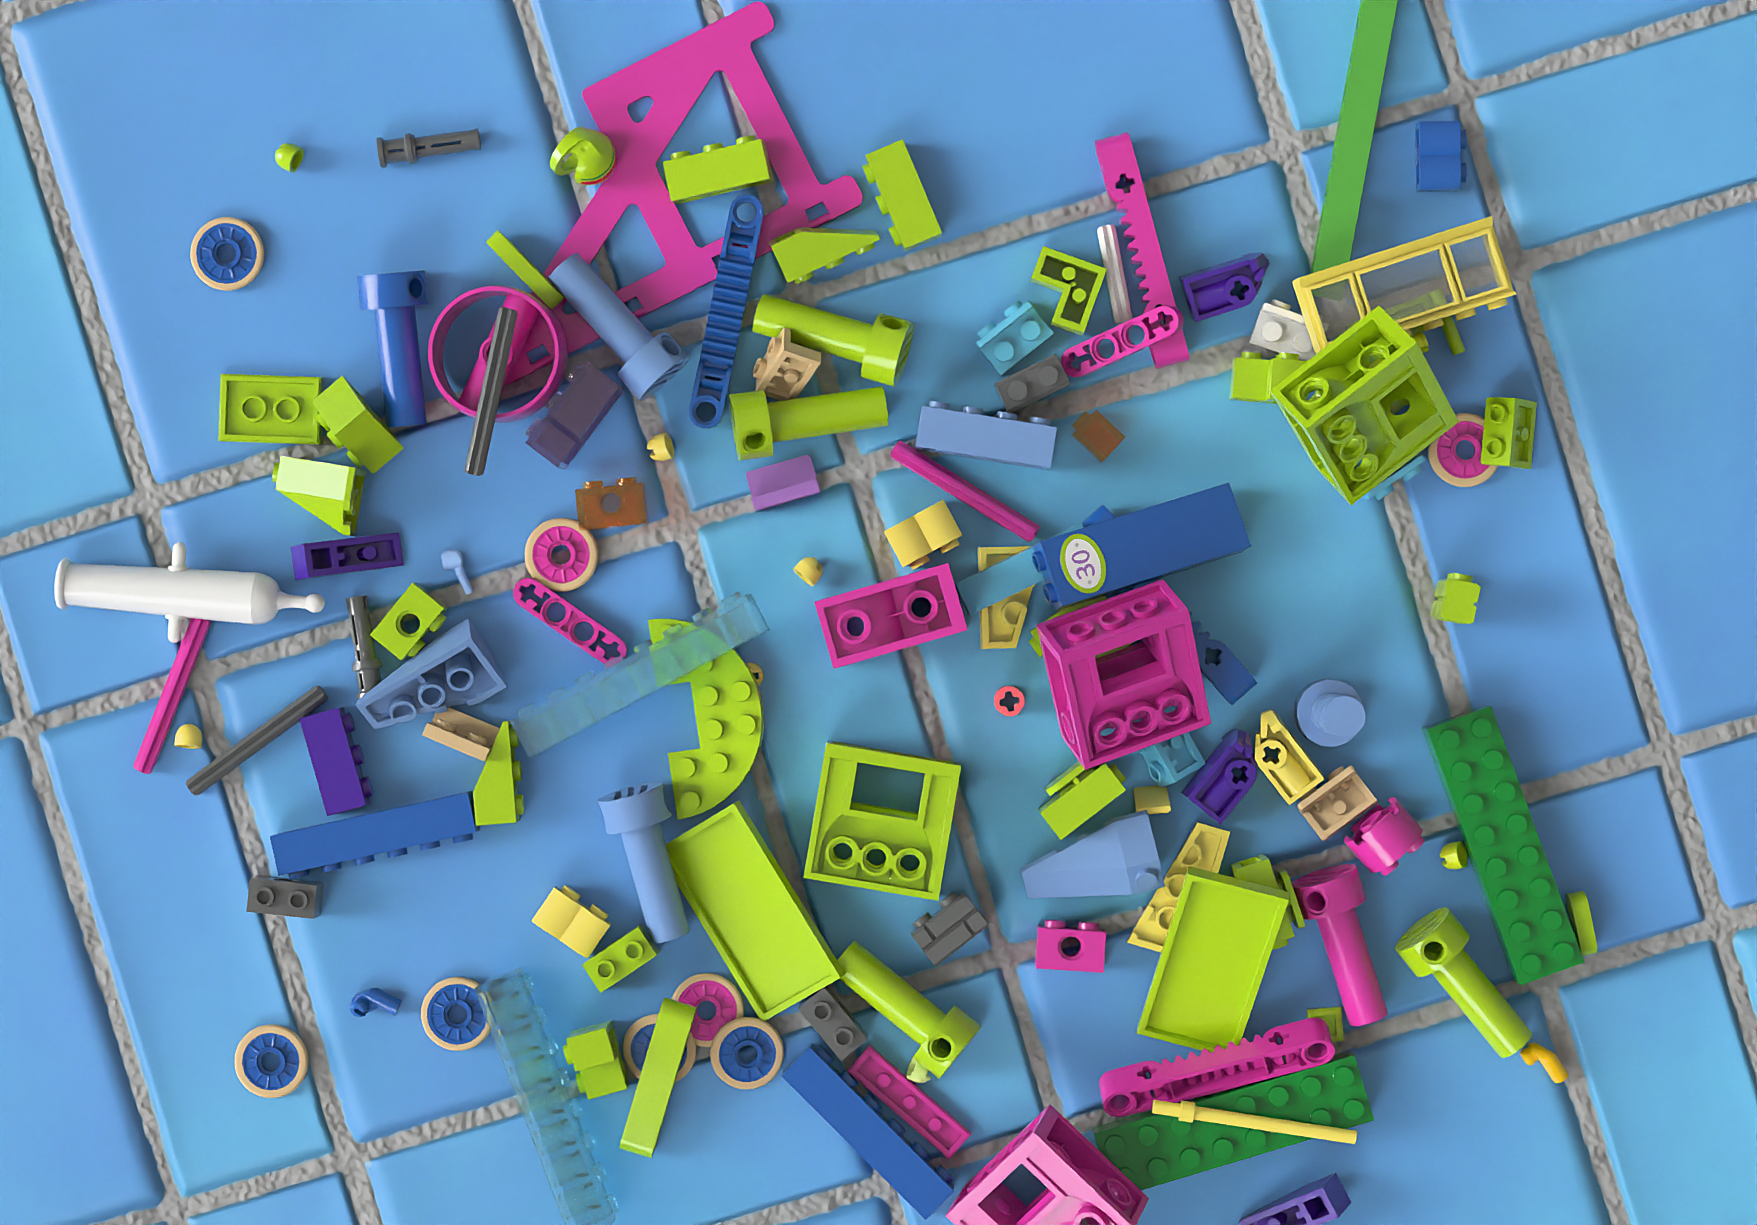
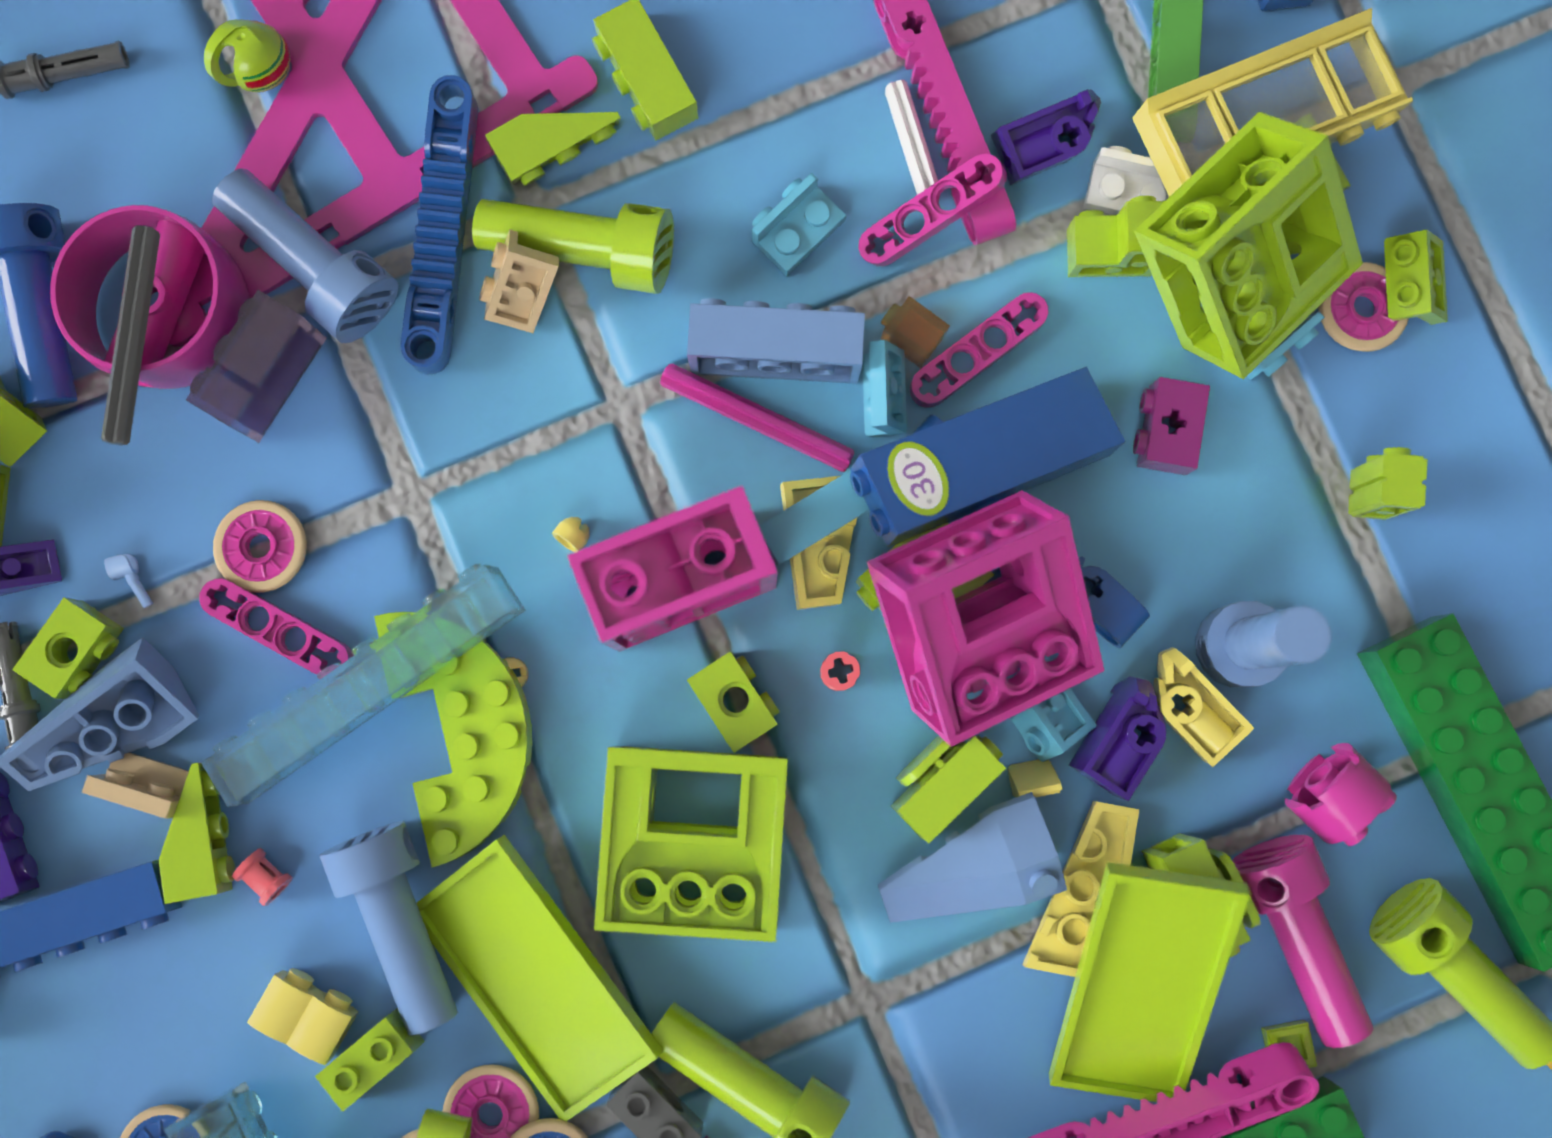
camera: 10 degrees left, 5 degrees down
(525, 269) = (186, 199): lime beam -> none
(547, 813) = (262, 877): none -> coral bush
(631, 511) = (341, 483): clear orange brick -> none
(662, 447) = (375, 400): light yellow hinge -> none
(717, 170) = (414, 58): lime brick -> none
(761, 423) = (494, 354): lime piece -> none
(782, 482) = (530, 430): medium lavender panel -> none
(923, 534) = (712, 469): light yellow brick -> none
(924, 736) = (711, 686): none -> lime brick
(949, 927) = (792, 973): dark grey brick -> none
(1032, 384) = (828, 274): dark grey brick -> none
(1068, 482) = (884, 389): none -> medium azure bracket
(1076, 281) = (863, 144): lime brick -> none
(1089, 955) = (975, 994): dark pink brick -> none
(1147, 452) = (976, 347): none -> dark pink beam
(1308, 519) = (1186, 408): none -> magenta brick
(1336, 802) = (1268, 758): tan bracket -> none
(1454, 855) = (1423, 810): neon yellow hinge -> none

